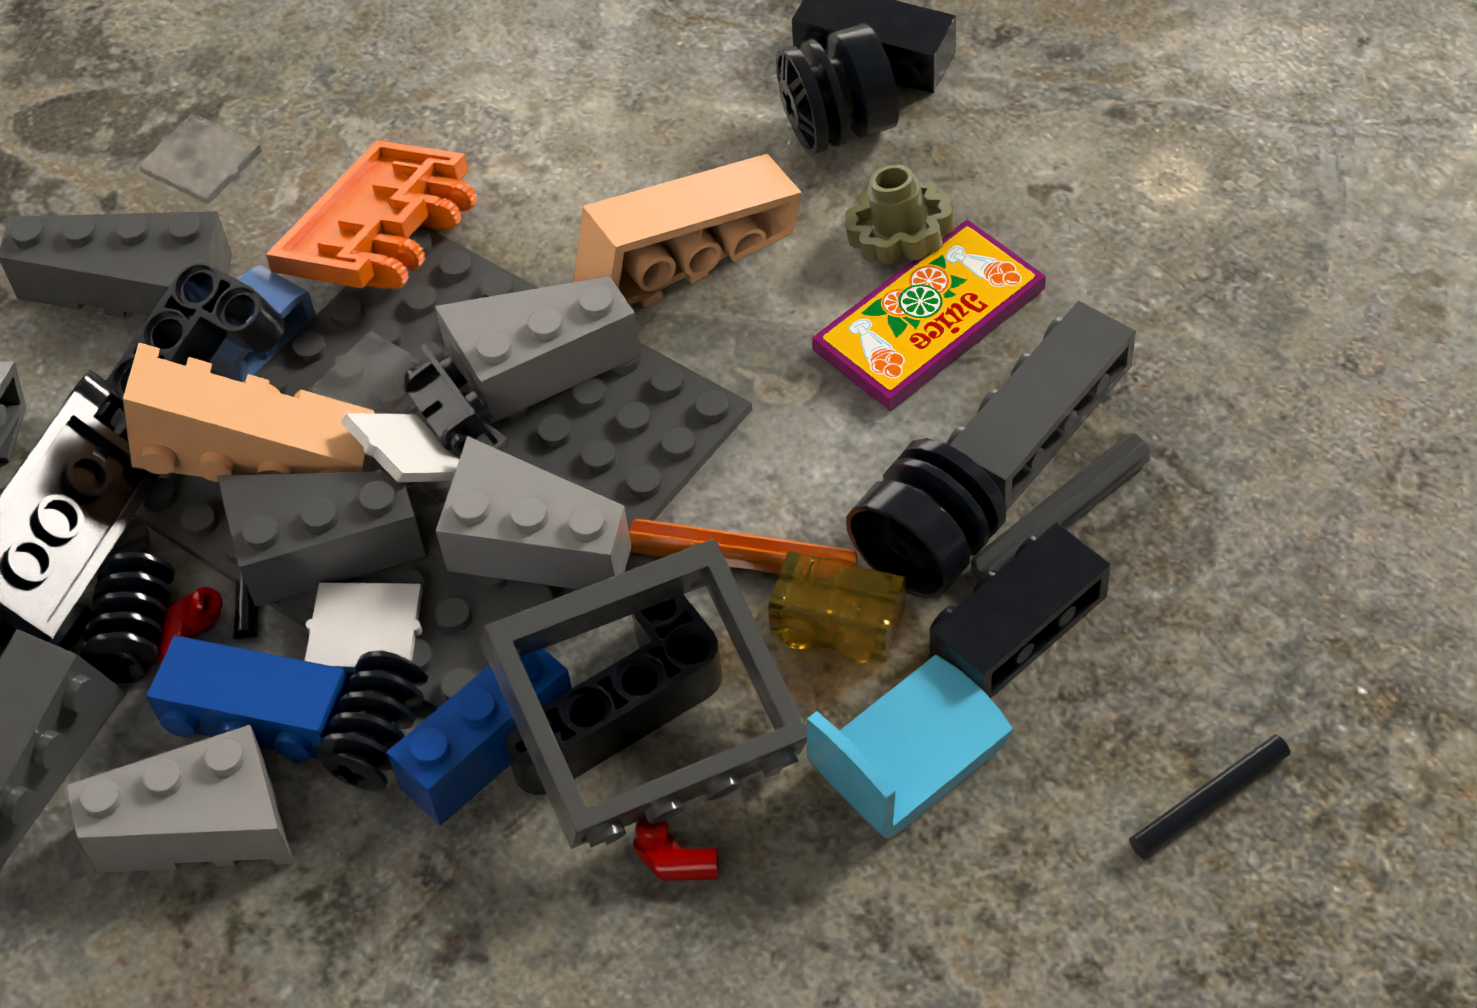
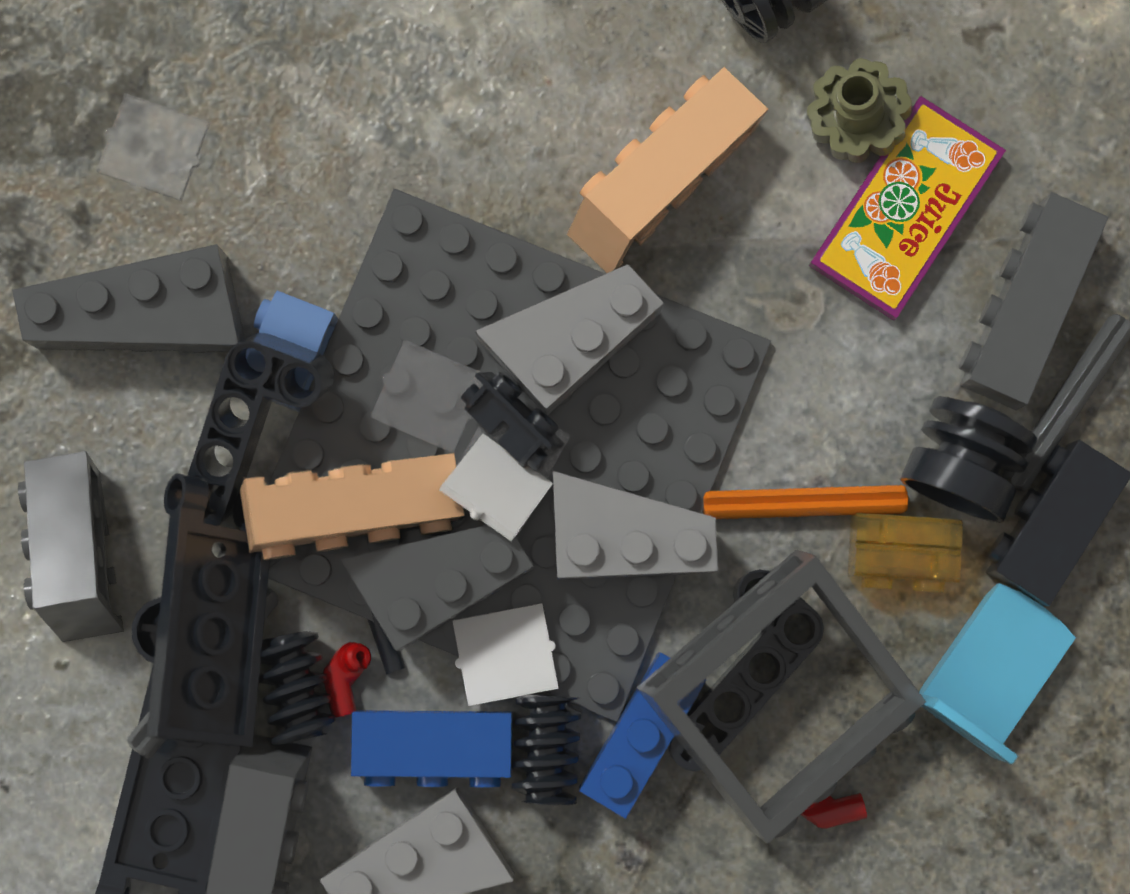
camera: 20 degrees left, 30 degrees up
(366, 218) = (357, 197): orange hinge -> none

